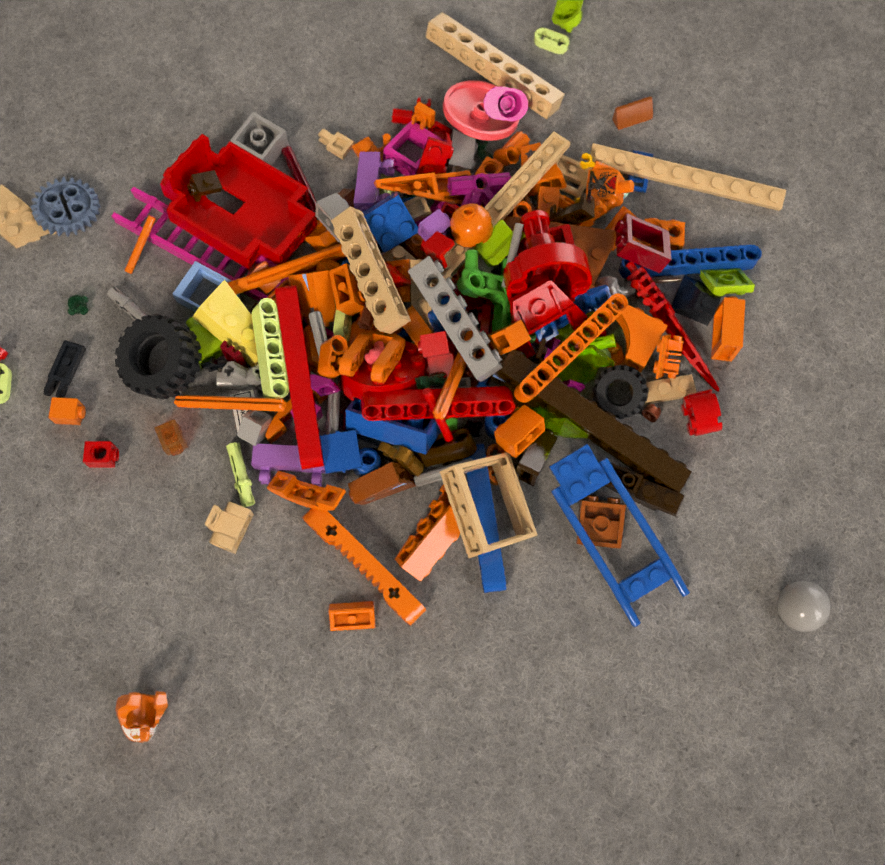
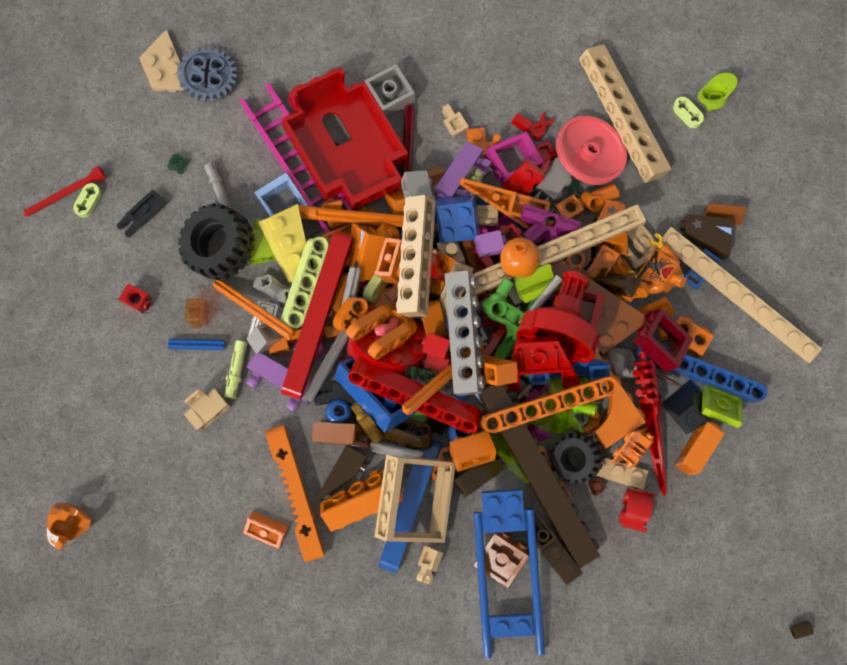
camera: 30 degrees right, 5 degrees up
(66, 411) = (126, 250): orange brick -> none
(140, 244) = (249, 136): orange bar -> none
(186, 469) = (196, 344): none -> blue axle
(203, 184) = (323, 110): dark brown bracket -> none
(213, 364) = (259, 267): black piece -> none
(232, 355) = (276, 269): dark red tile -> none
(304, 493) = (277, 412): orange slope -> none
(323, 386) = (332, 333): magenta slope -> none
(340, 451) = (319, 394): blue piece -> none
(403, 514) = (346, 468): none -> dark brown slope
(424, 115) = (539, 133): orange tile -> none
(437, 247) = (481, 264): red panel -> none
(441, 423) = (407, 395): red bar -> none
(505, 103) = (612, 156): piece -> none
(531, 562) = (429, 562): none -> tan plate
(629, 135) = (708, 233): none -> dark brown slope

